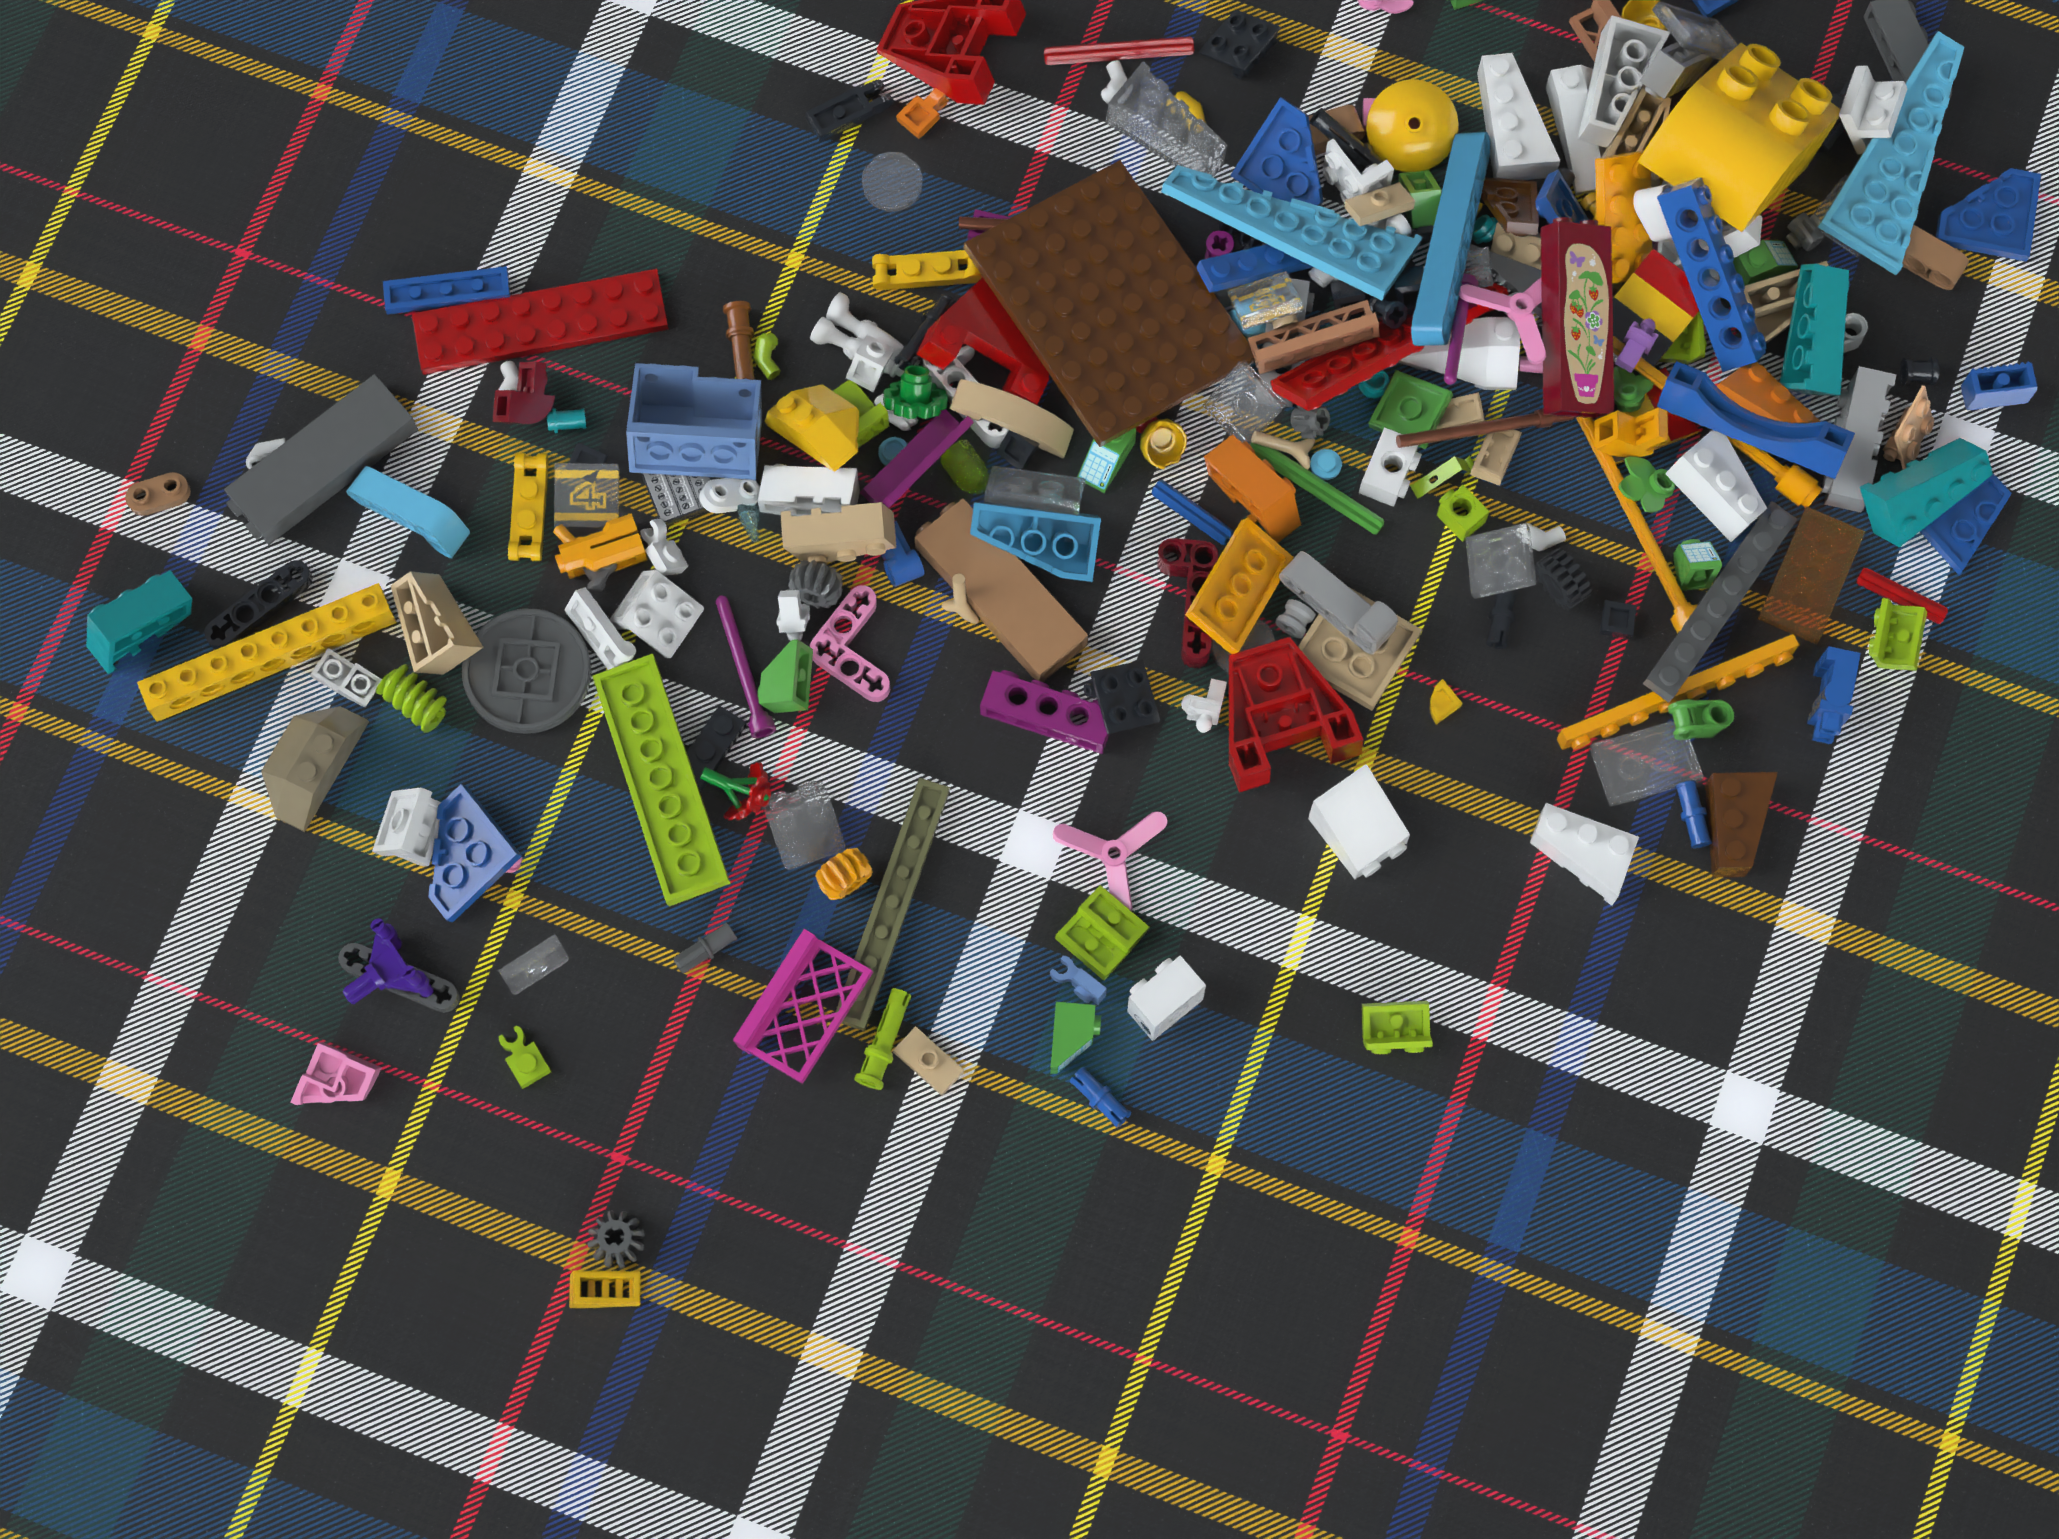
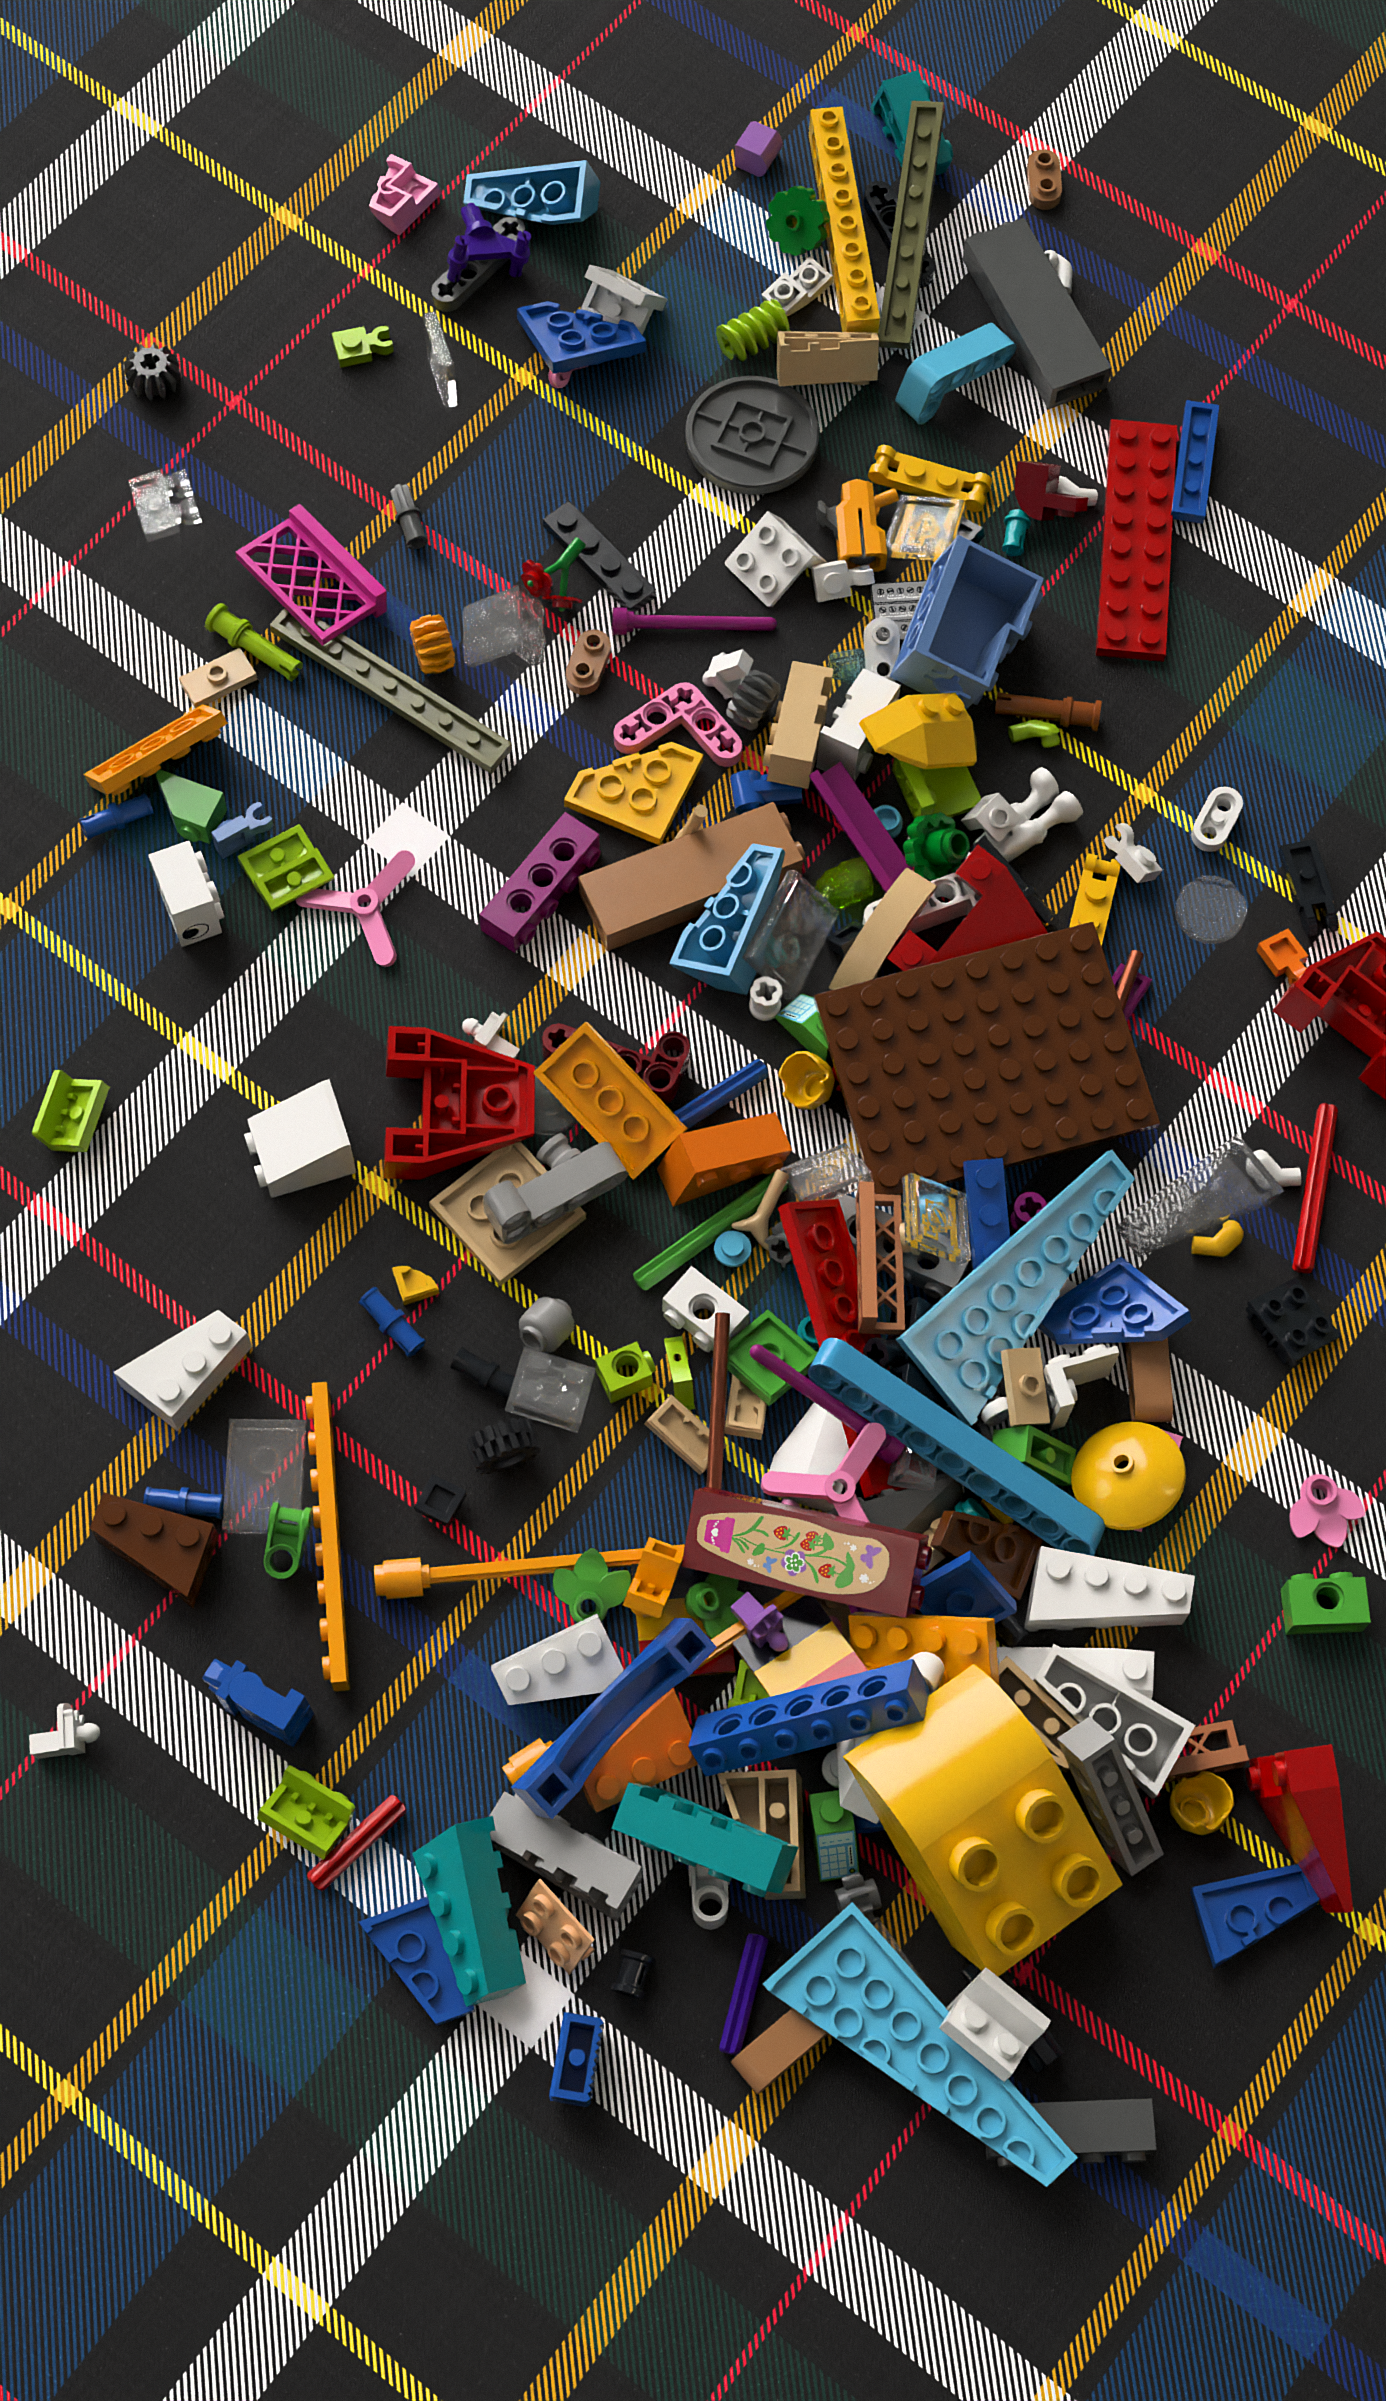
camera: 105 degrees right, 5 degrees down
(196, 756) = (757, 148): none -> medium lavender piece
(256, 584) = (911, 224): none -> olive plate
(279, 689) = (797, 220): none -> green plant
(309, 762) = (723, 241): dark tan wedge -> none
(311, 937) = (537, 193): none -> dark azure wedge
(591, 1301) = (109, 330): yellow slope -> none
(598, 630) = (795, 497): white plate -> none
(661, 780) = (590, 509): lime plate -> none
(764, 1182) = (154, 506): none -> clear plate
(787, 679) = (658, 650): bright green slope -> none
(809, 191) = (1216, 821): none -> white plate
(809, 744) = (588, 659): none -> medium nougat plate
(867, 246) = (1134, 859): none -> white plate
(929, 660) = (637, 790): none -> yellow plate
(1029, 1079) = (147, 755): none -> light orange plate
(1098, 490) = (762, 990): none -> white bush
(1123, 696) = (525, 952): black hinge -> none
(1324, 122) = (1123, 1384): black pin -> none
(1445, 583) = (546, 1324): none -> light grey head
(1484, 705) = (392, 1322): none -> blue pin
(1544, 540) = (566, 1450): white arm -> none
(1695, 31) = (1156, 1848): clear tile -> none
(1696, 564) = (473, 1604): bright green slope -> none
(1719, 602) = (416, 1613): dark grey plate -> none
(1811, 575) = (418, 1742): clear orange plate -> none
(1900, 294) = (743, 1994): none -> dark purple axle
(1914, 834) = (68, 1739): none -> white piece
(1995, 217) = (812, 2158): blue plate -> none

